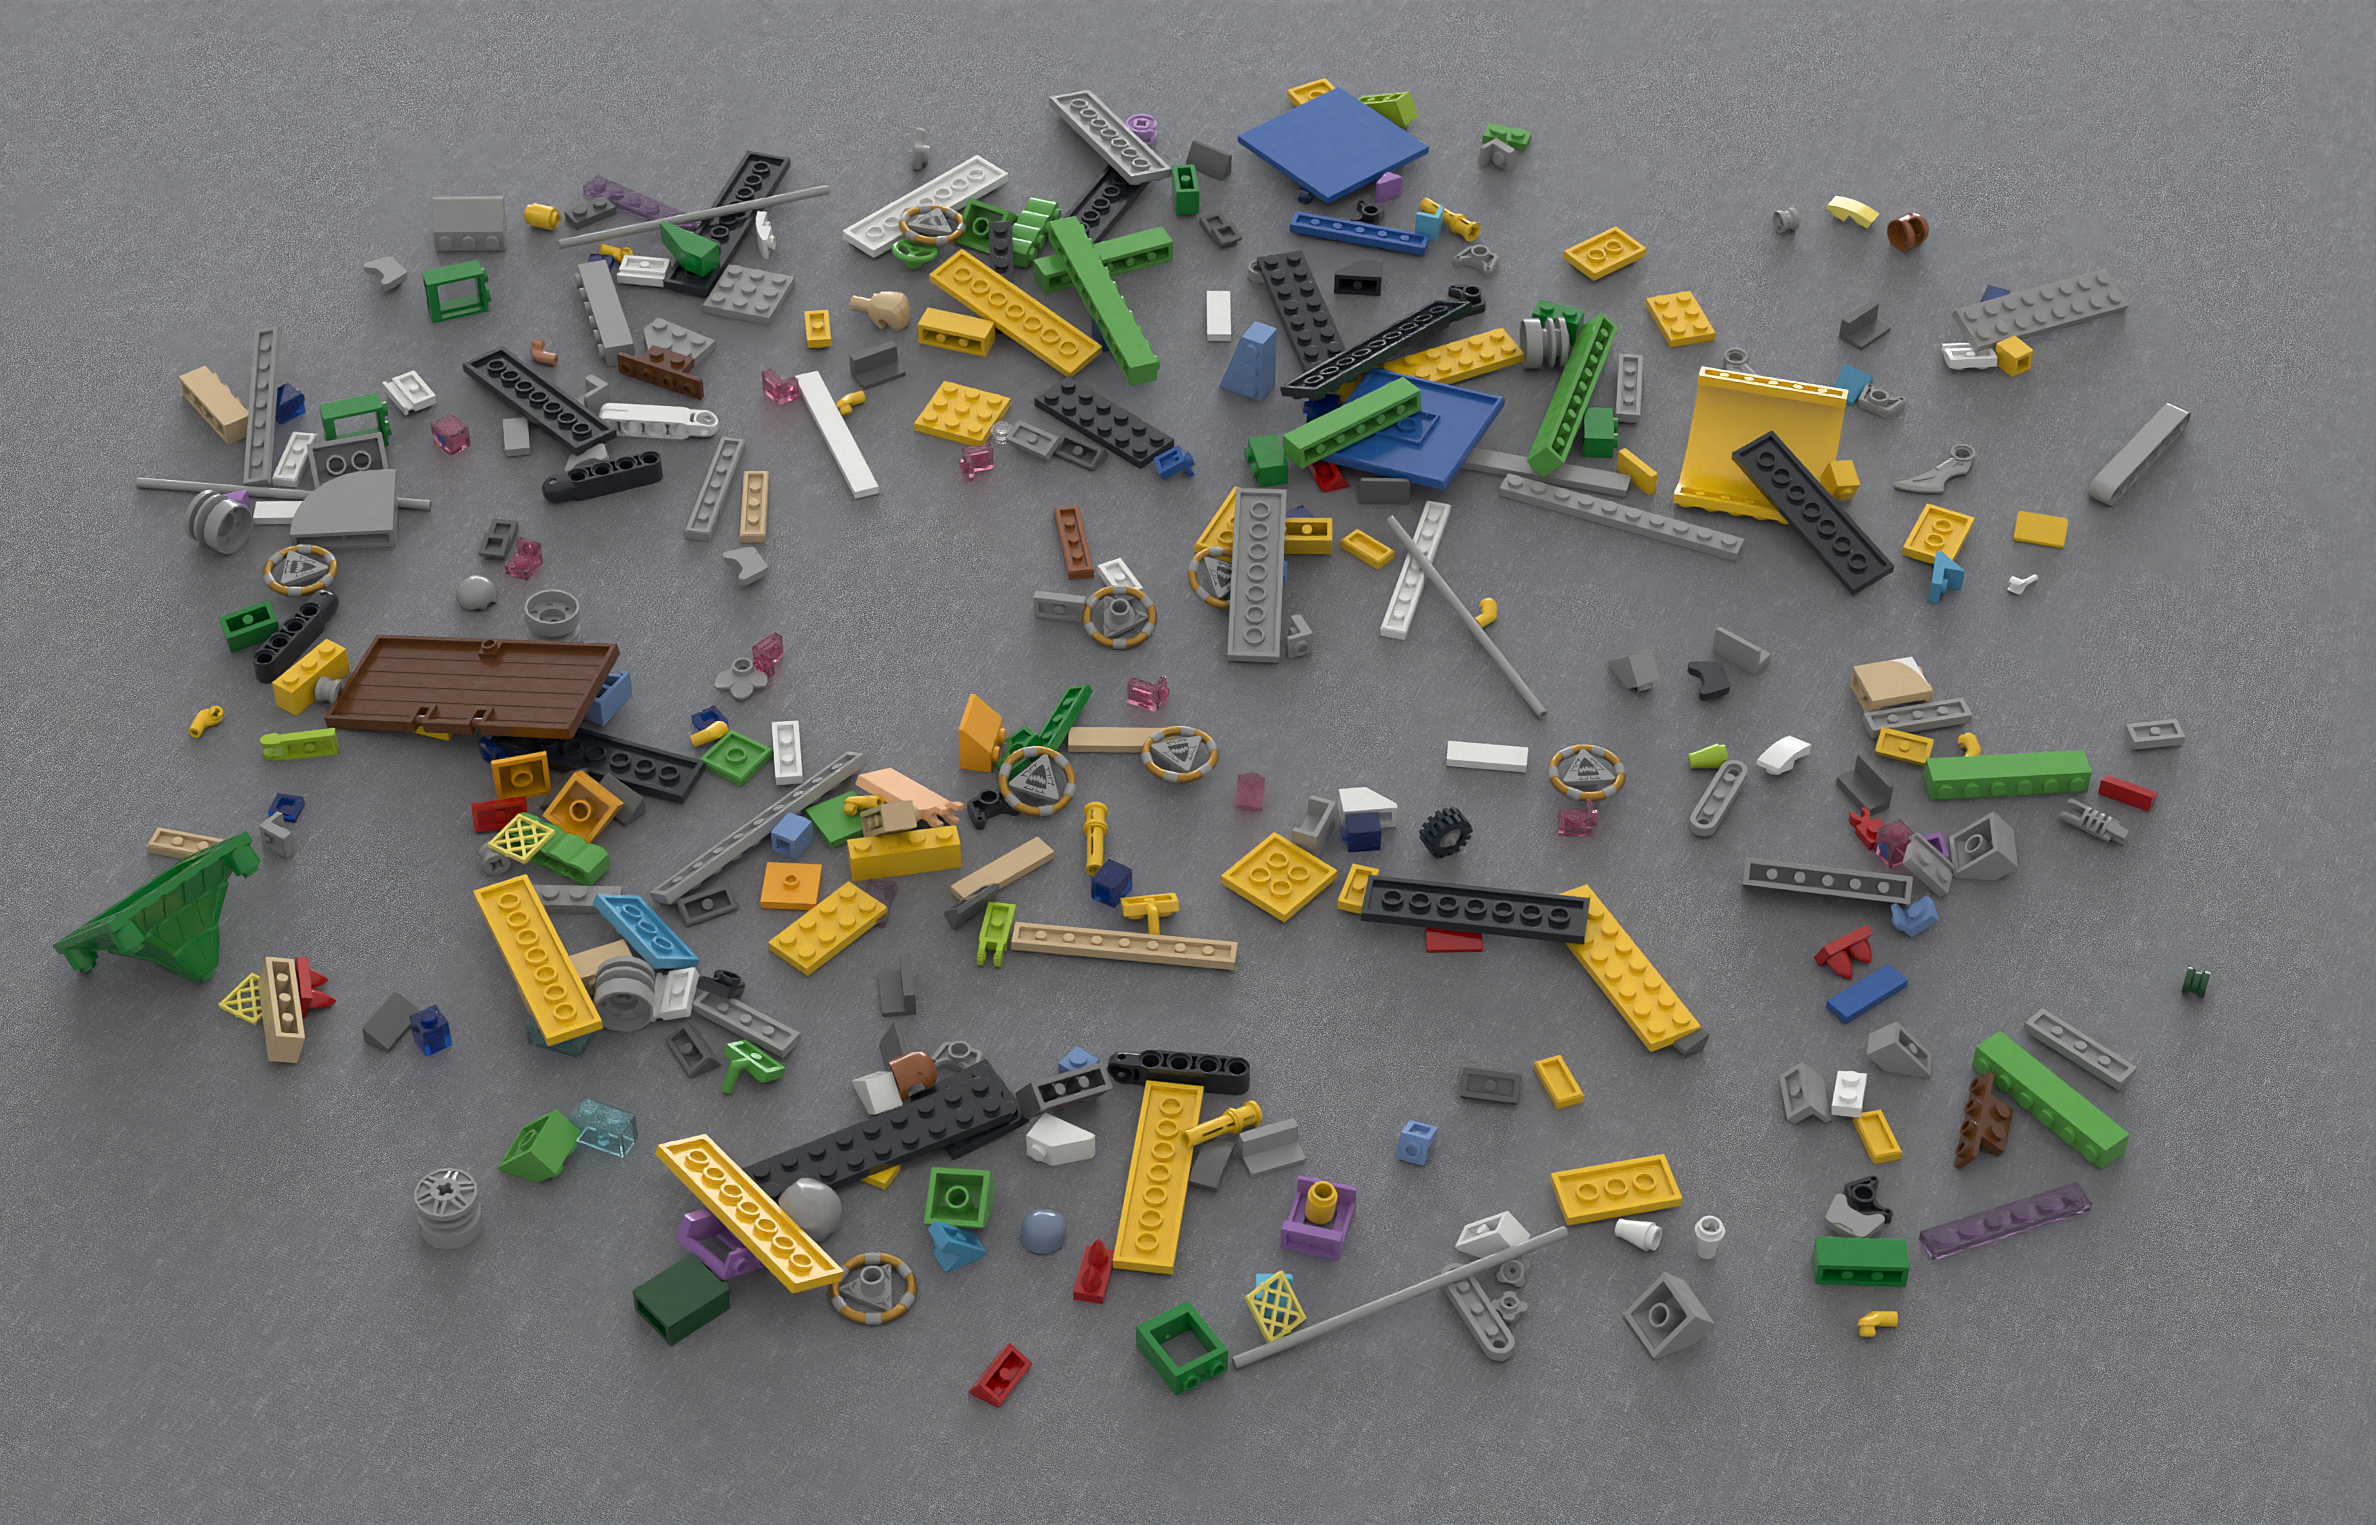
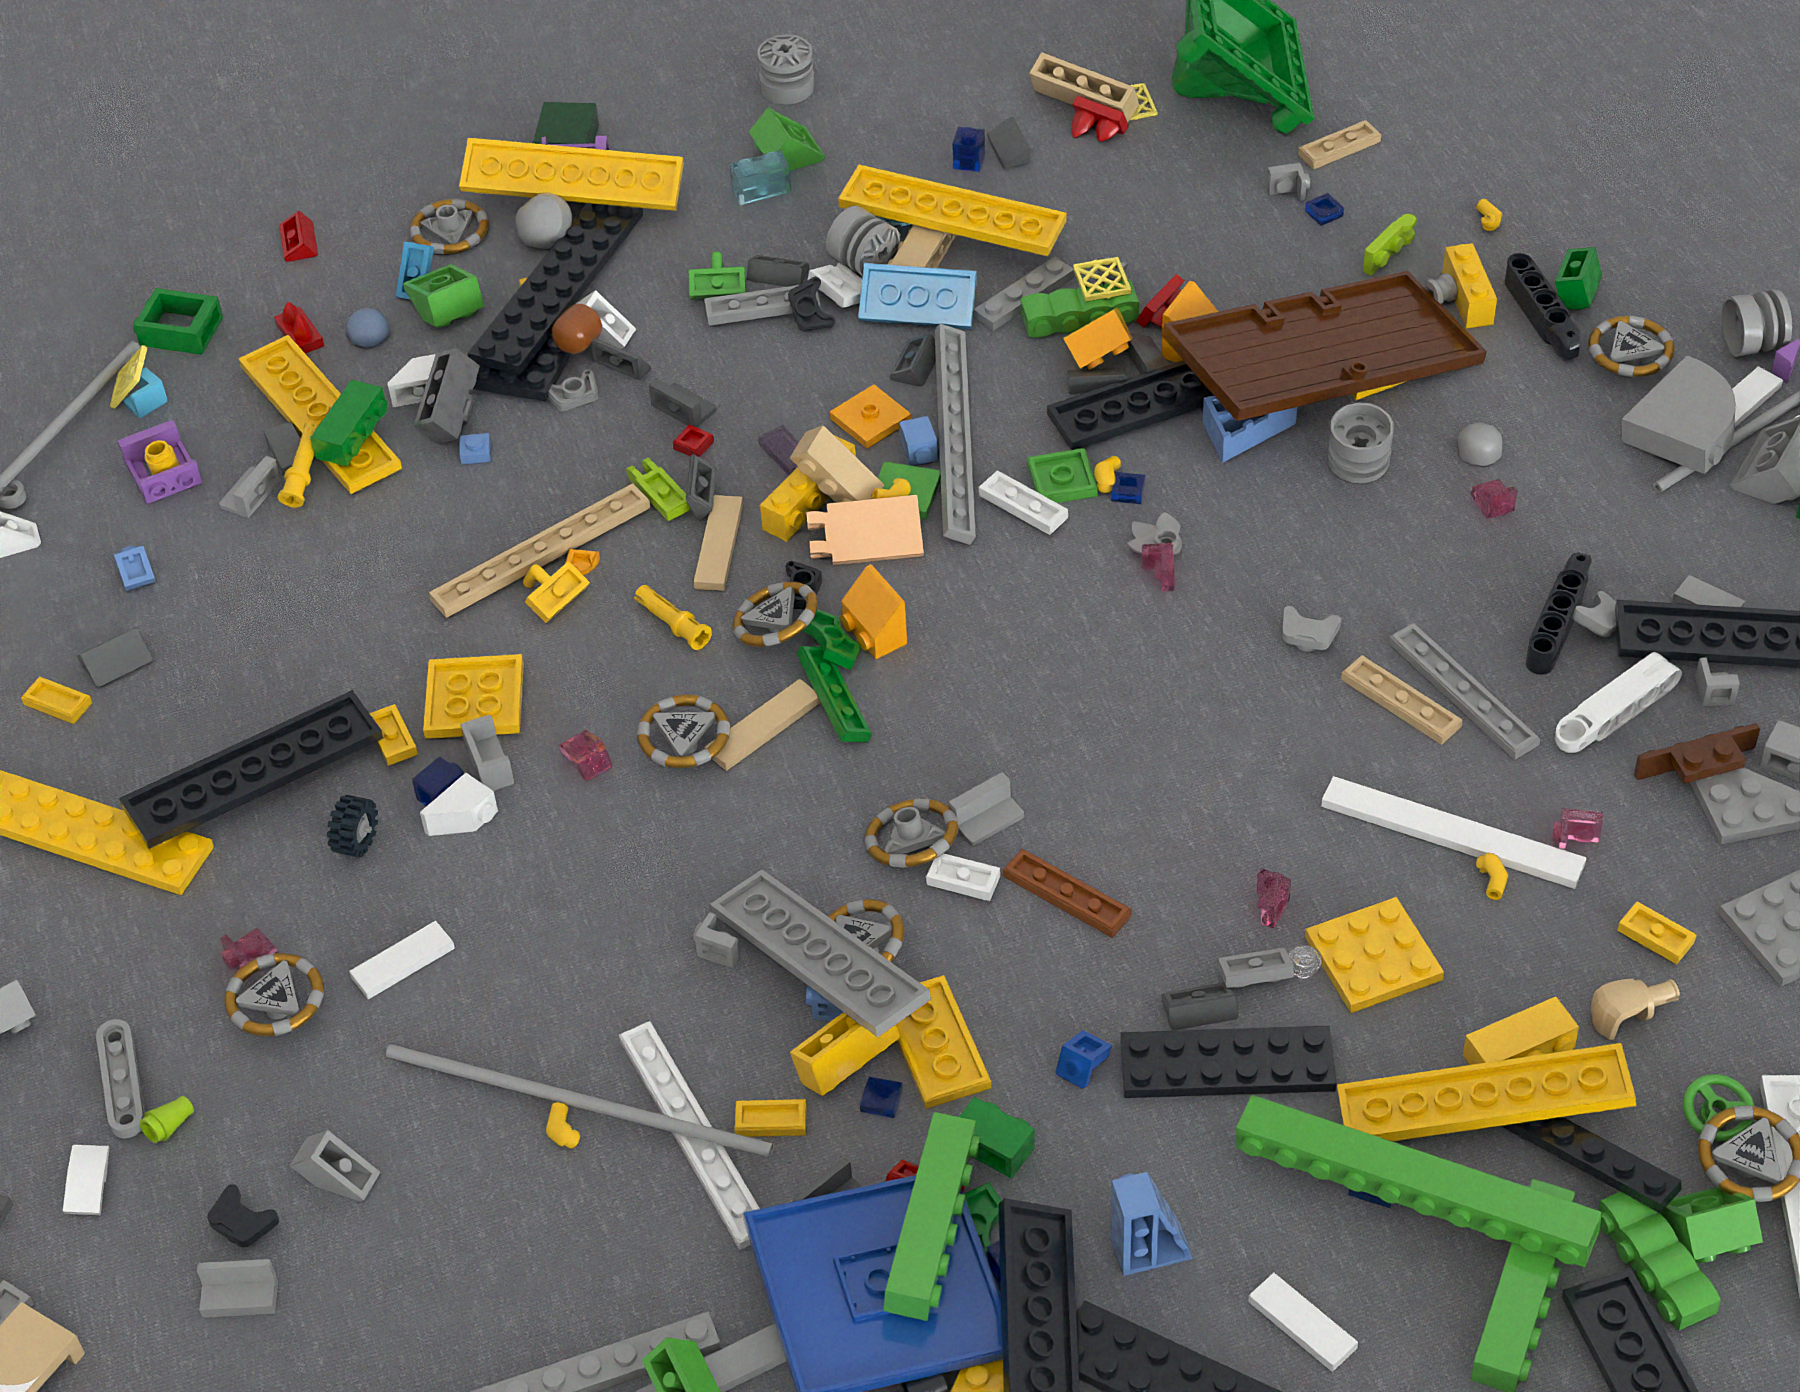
camera: 140 degrees right, 5 degrees up
(450, 434) = (1755, 549): clear pink brick -> none
(499, 538) = (1545, 499): dark grey slope -> none
(827, 928) = (794, 401): yellow plate -> none
(876, 365) = (1529, 938): dark grey panel -> none
(927, 957) = (693, 441): none -> red tile
(1107, 923) = (583, 560): none -> light orange tile
(1111, 883) = (610, 586): clear blue brick -> none
(1147, 694) = (789, 773): clear pink bracket -> none
(1155, 1119) = (349, 423): none -> green brick
(1215, 1072) = (380, 488): black piece -> none

